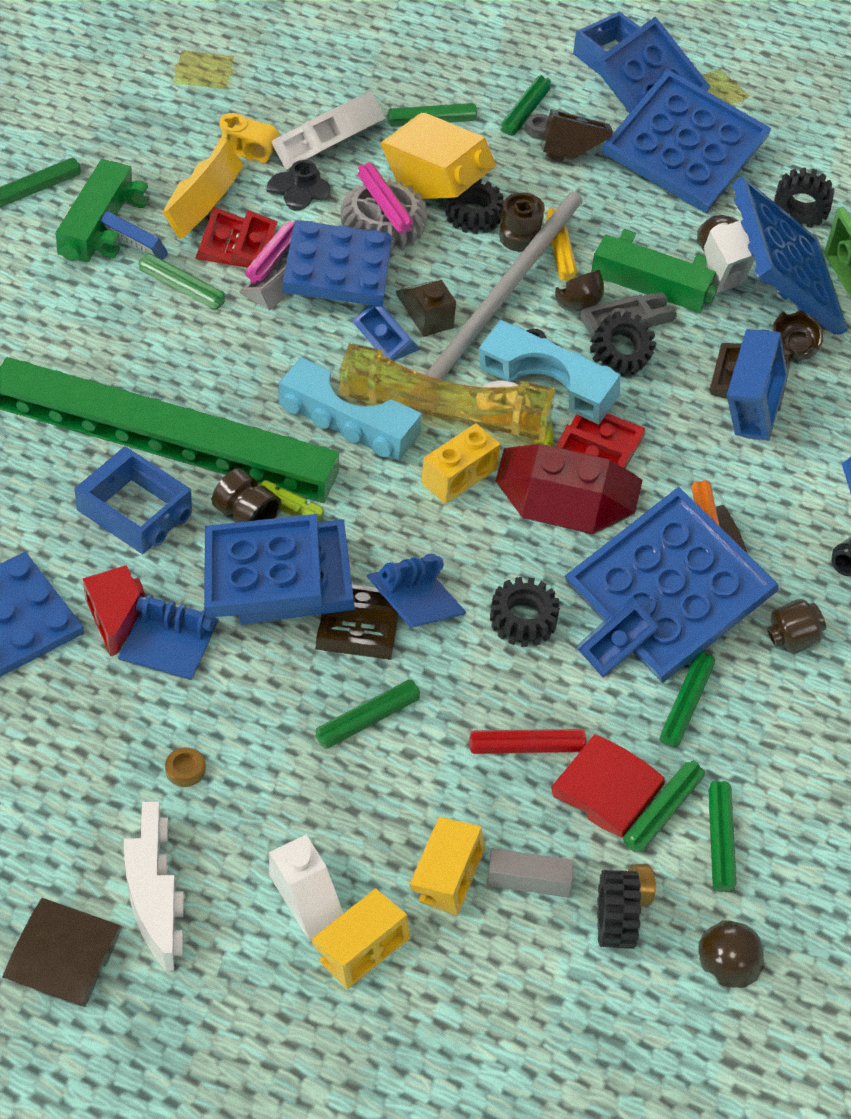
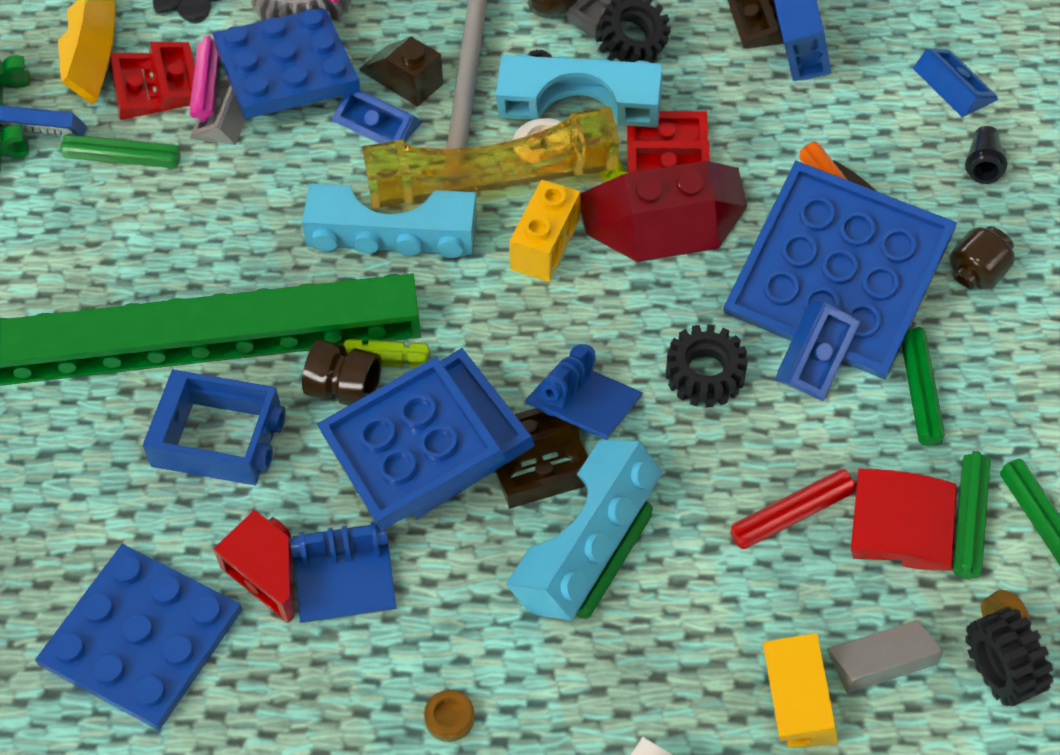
camera: 20 degrees left, 5 degrees up
(328, 700) = (562, 571): none -> medium azure arch

